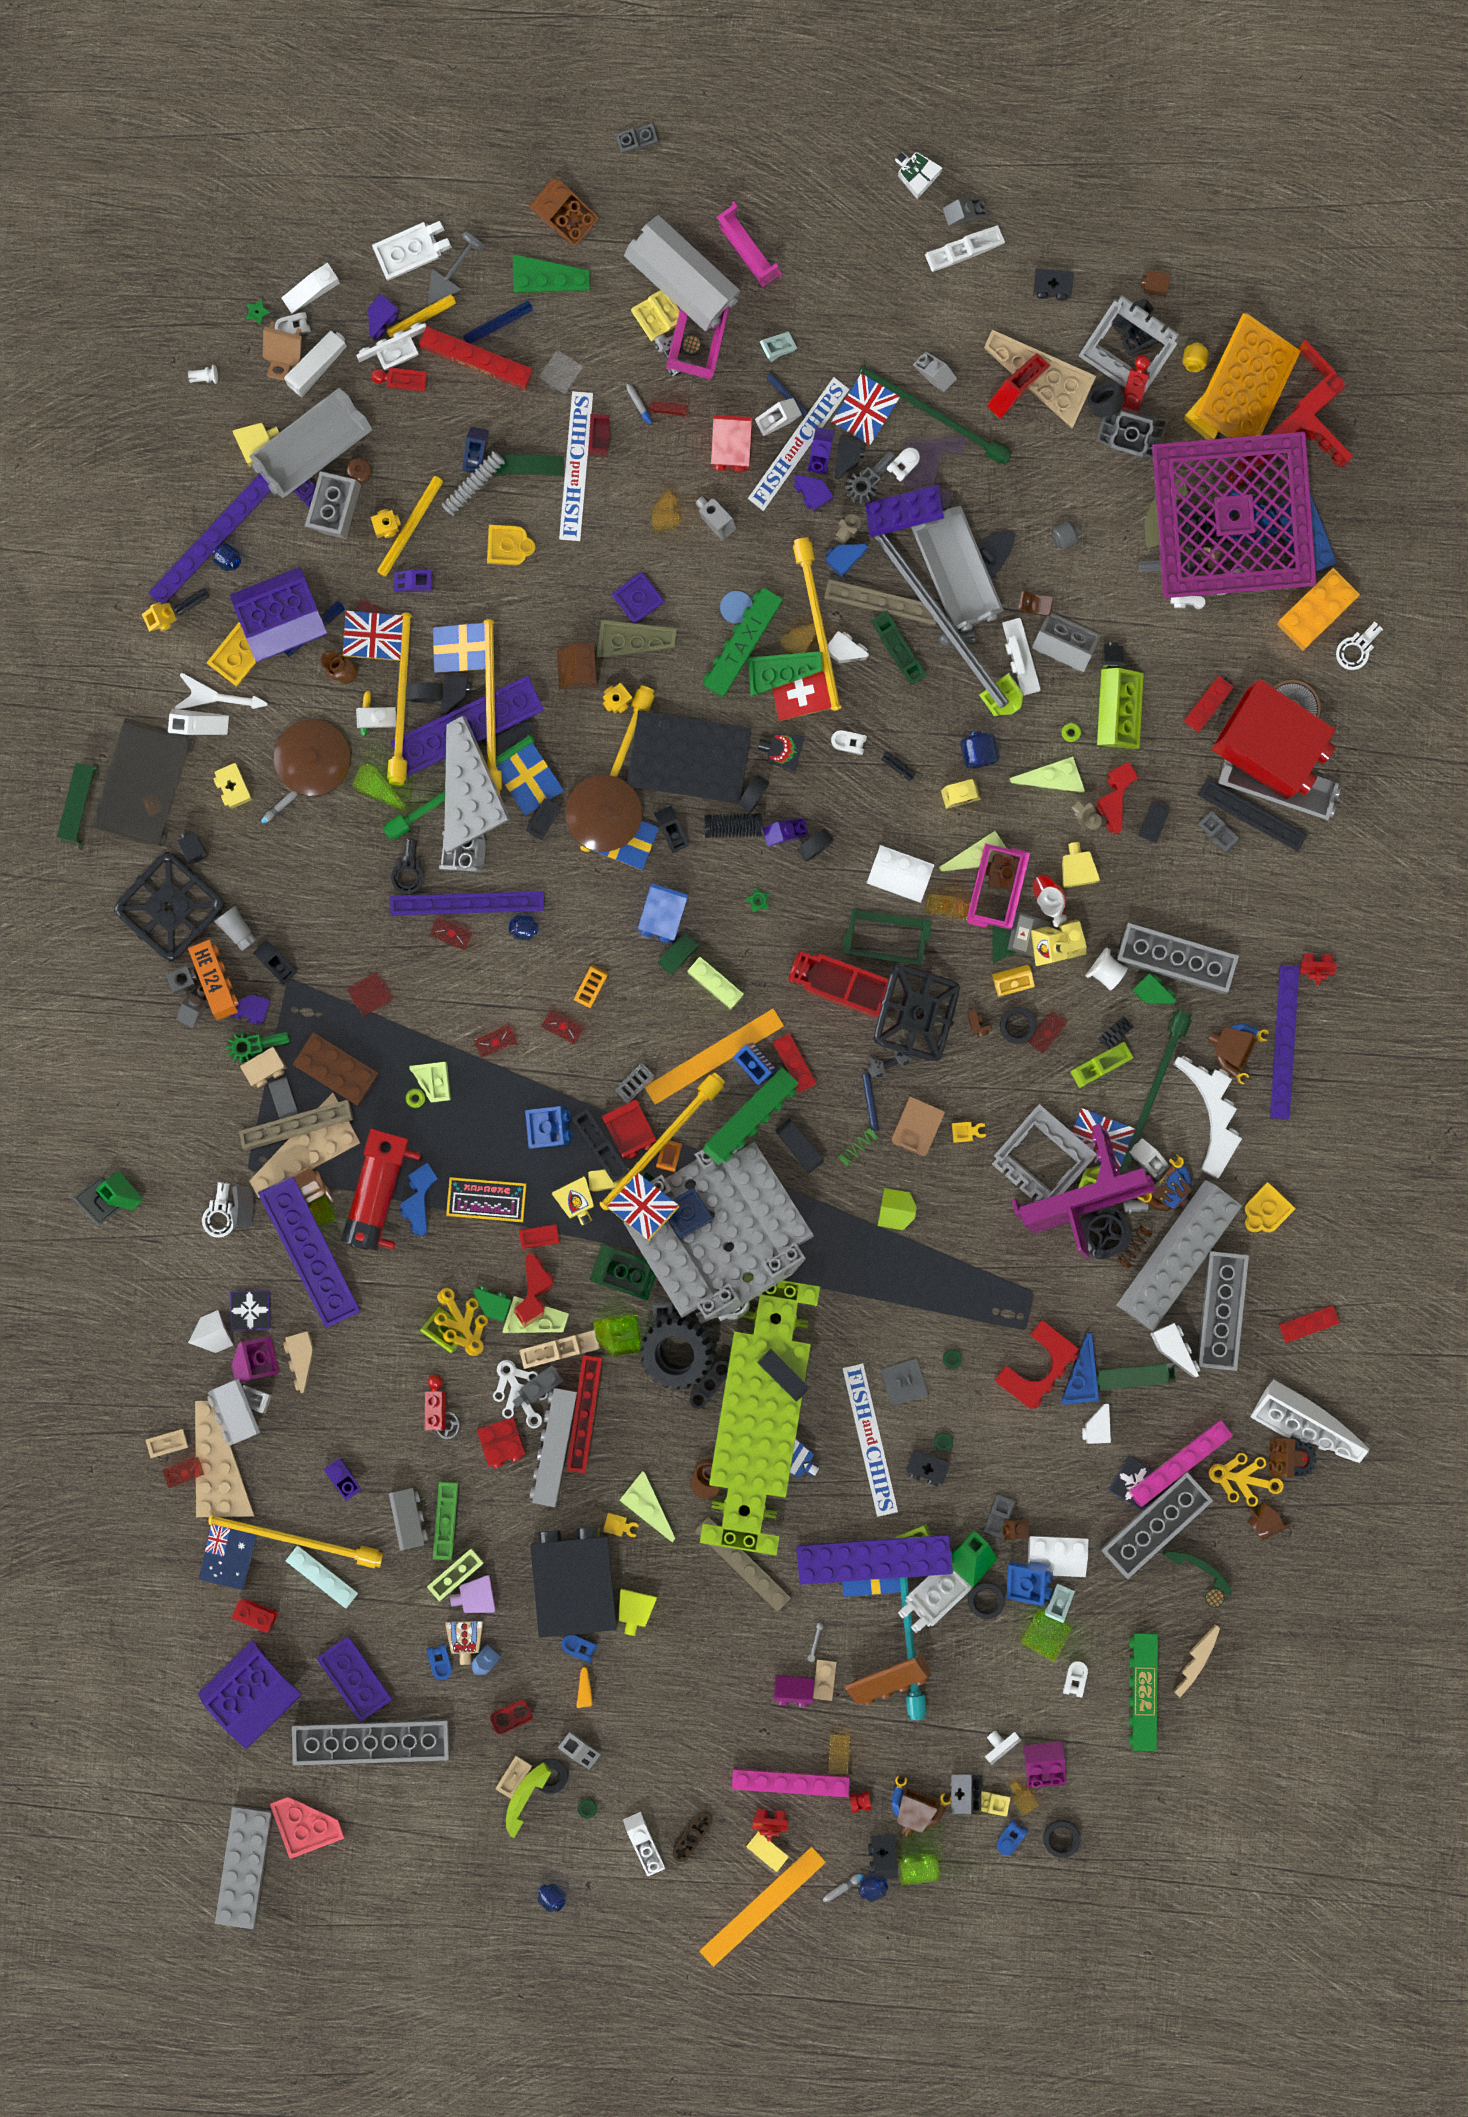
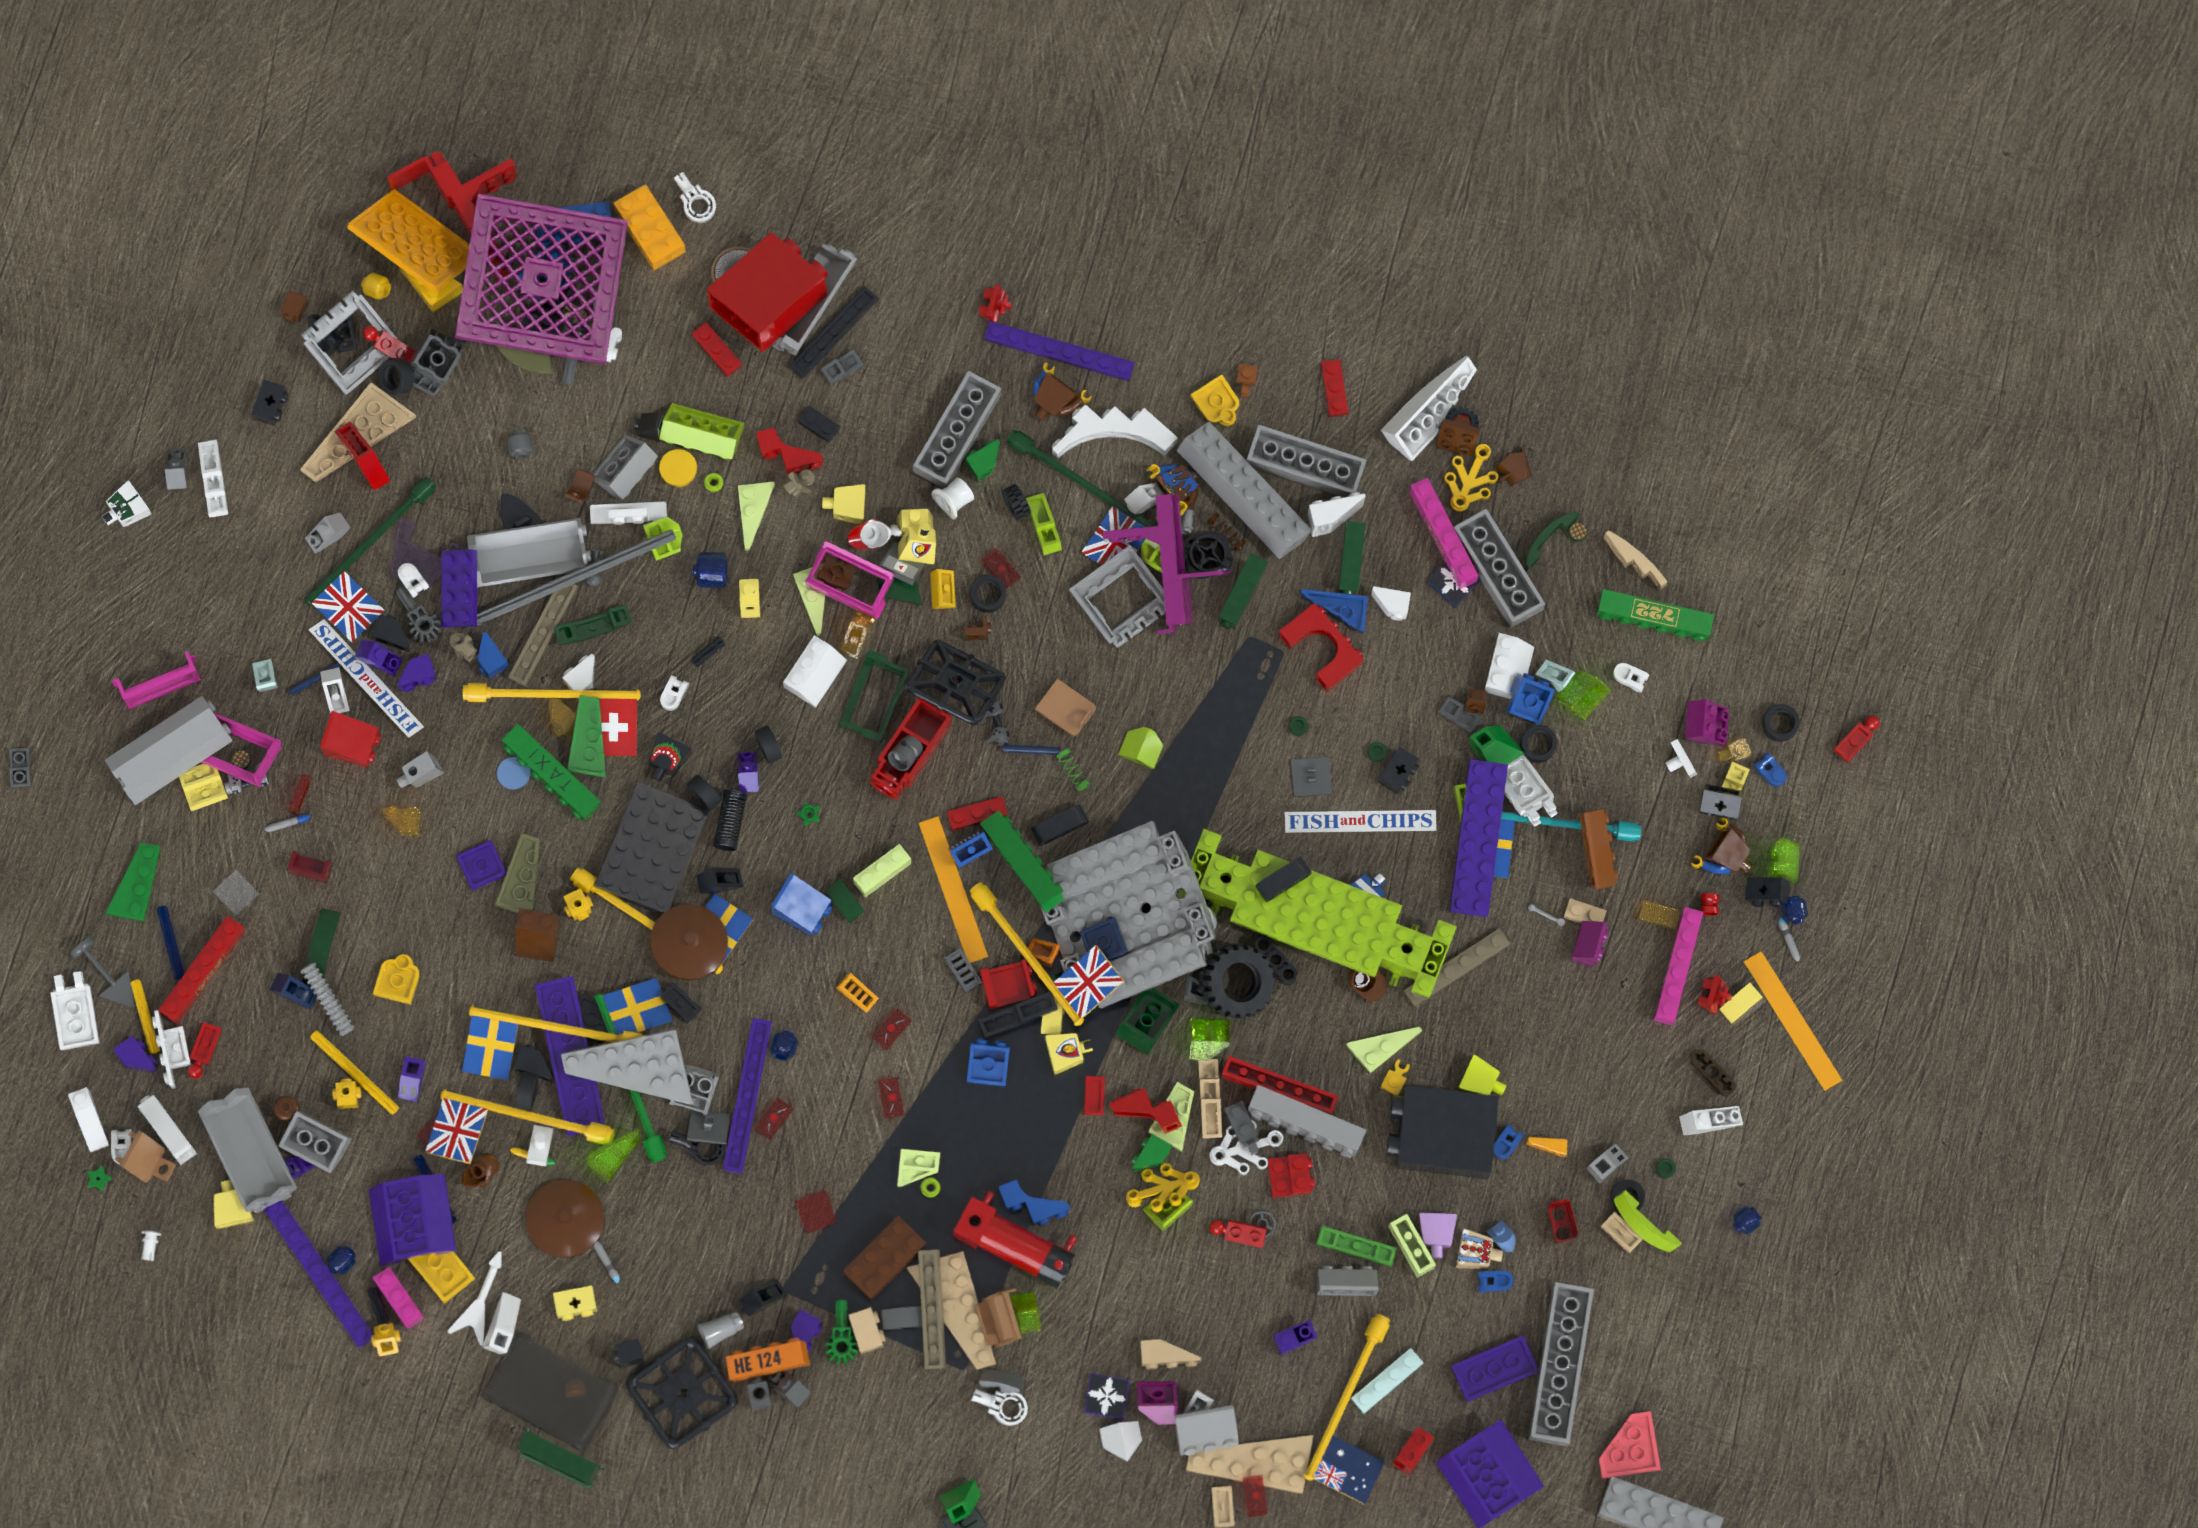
camera: 85 degrees left, 10 degrees down
(201, 619) = (398, 1298): none -> dark pink brick
(309, 1251) = (1062, 1320): dark purple plate -> none
(426, 875) = (708, 1128): none -> dark grey piece
(486, 1199) = (1046, 1139): tile -> none
(563, 211) = (75, 854): dark orange slope -> none
(576, 466) = (334, 898): white sticker -> none
(832, 979) = (905, 753): none -> dark grey wheel
(964, 1131) = (1080, 666): yellow plate -> none
(1062, 1918) = (1857, 738): none -> red plate
(1073, 1275) = (1242, 591): none -> dark green slope
(1078, 694) = (678, 468): none -> yellow tile
(1300, 1234) = (1246, 377): none -> dark orange plate

